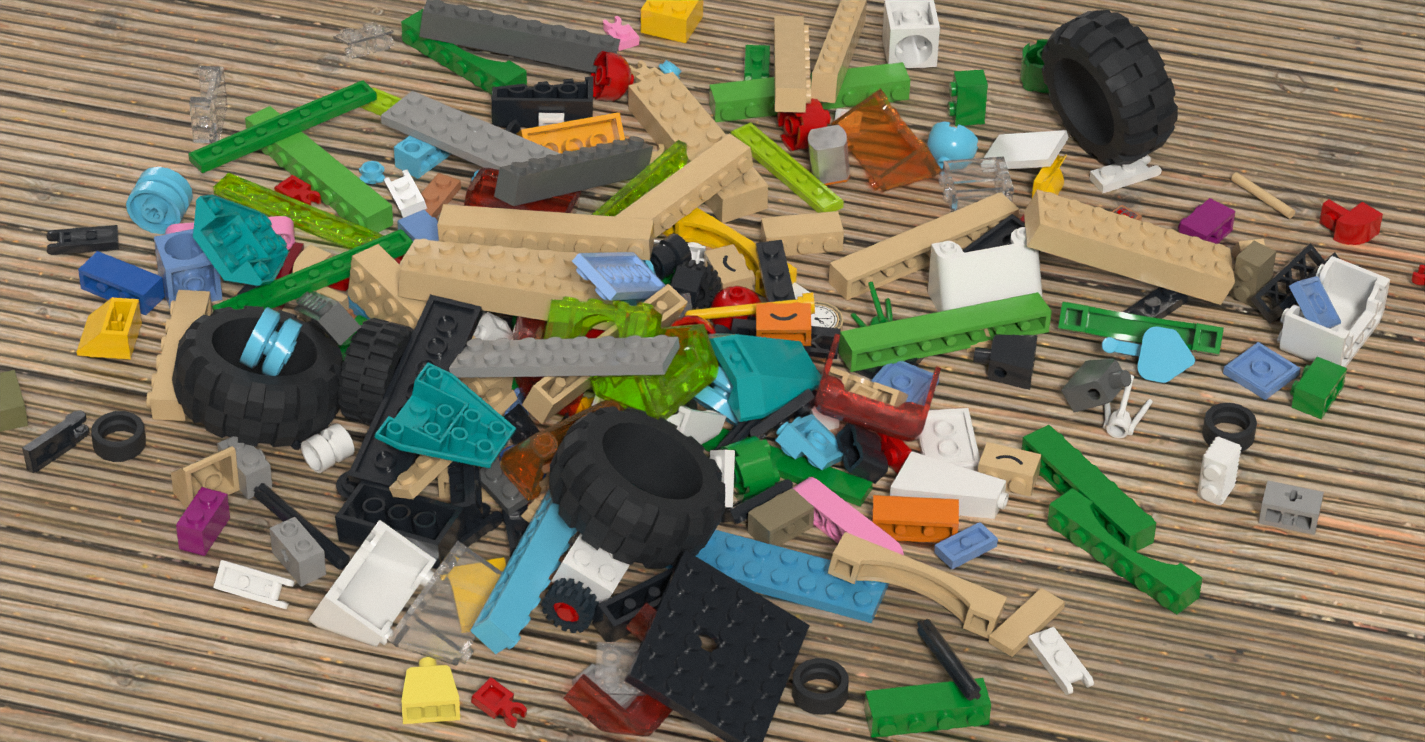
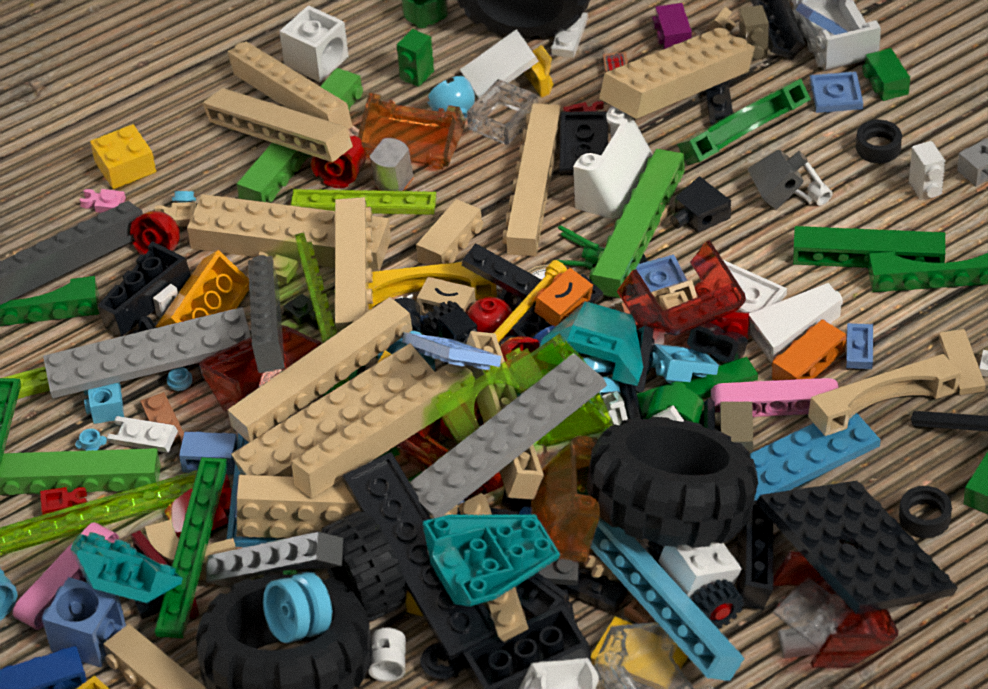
camera: 45 degrees left, 5 degrees up
(757, 62) = (235, 147): green hinge -> none
(1013, 465) = (808, 273): tan brick -> none
(1160, 355) = (781, 128): medium azure piece -> none

